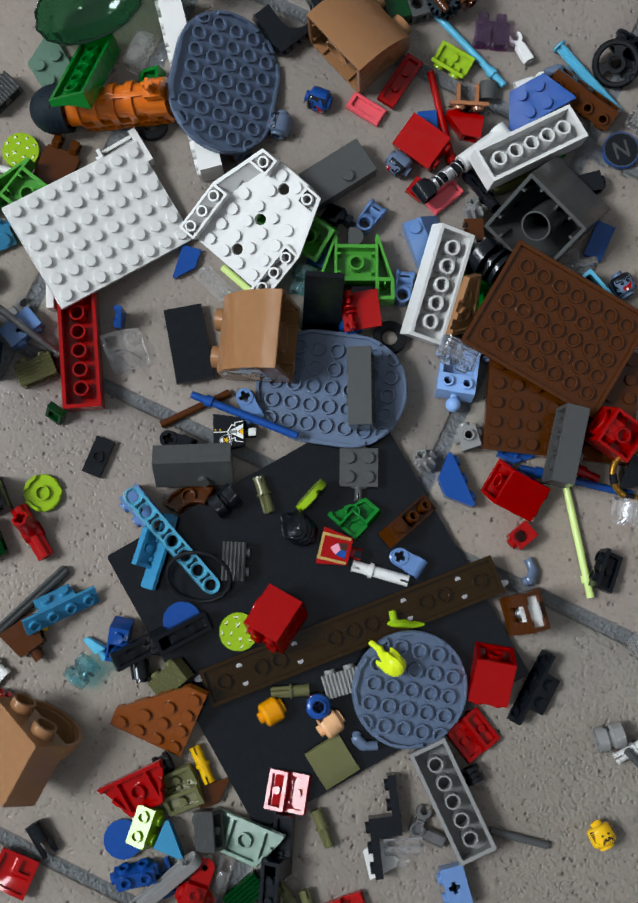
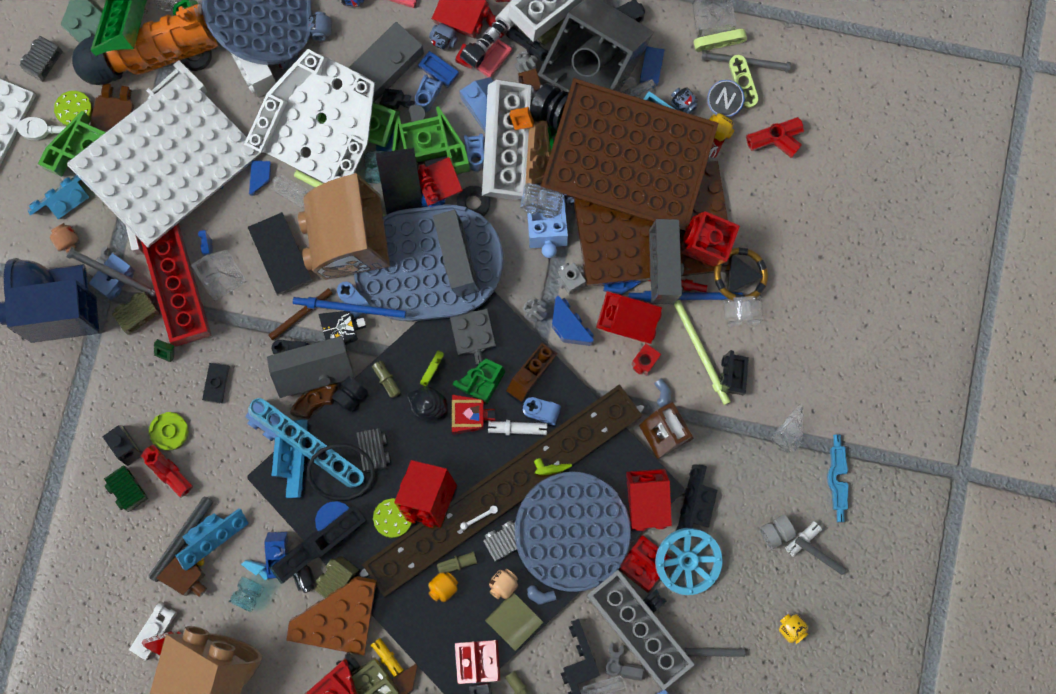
camera: 15 degrees left, 5 degrees down
(319, 713) = (488, 562): blue head -> none
(338, 649) = (464, 525): none -> white hinge
(386, 195) = (438, 69): none -> blue tile
(391, 662) = (547, 506): neon yellow piece -> none
(458, 267) = (521, 118): none -> orange tile
(515, 747) = (691, 564): none -> medium azure wheel

